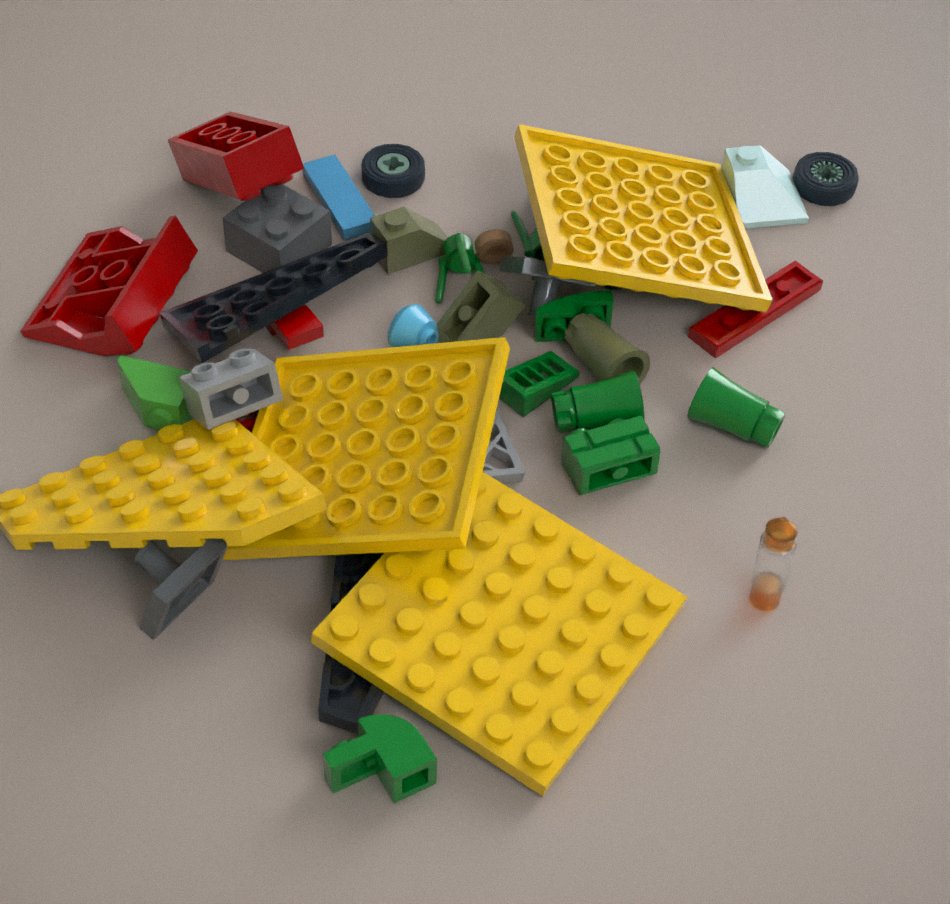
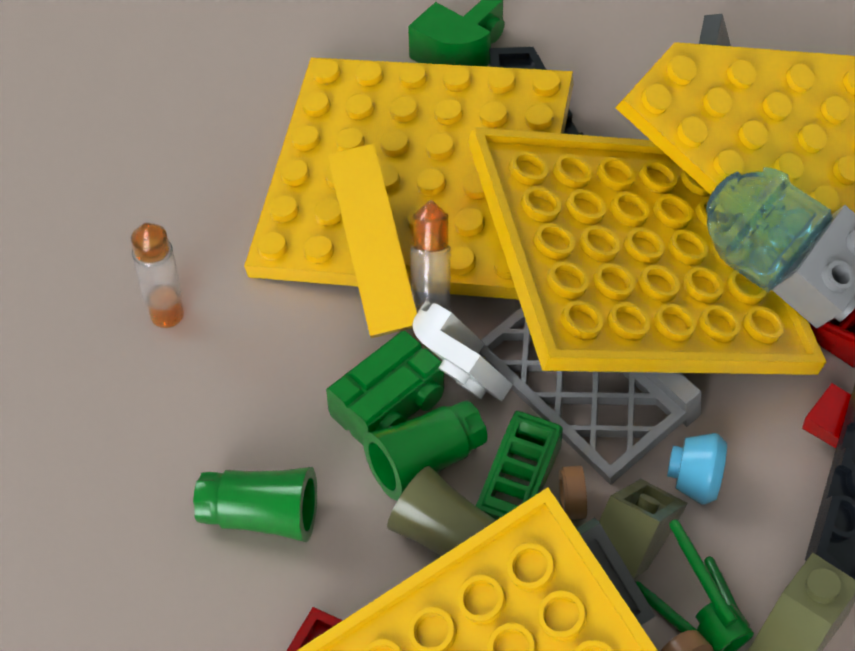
camera: 160 degrees right, 5 degrees up
(262, 413) = (763, 224): none -> clear light blue slope
(514, 339) = (573, 492): none -> medium nougat tile
(543, 487) = (430, 257): none -> piece
(548, 432) = (459, 351): none -> white slope
(579, 529) = (372, 240): none -> yellow slope

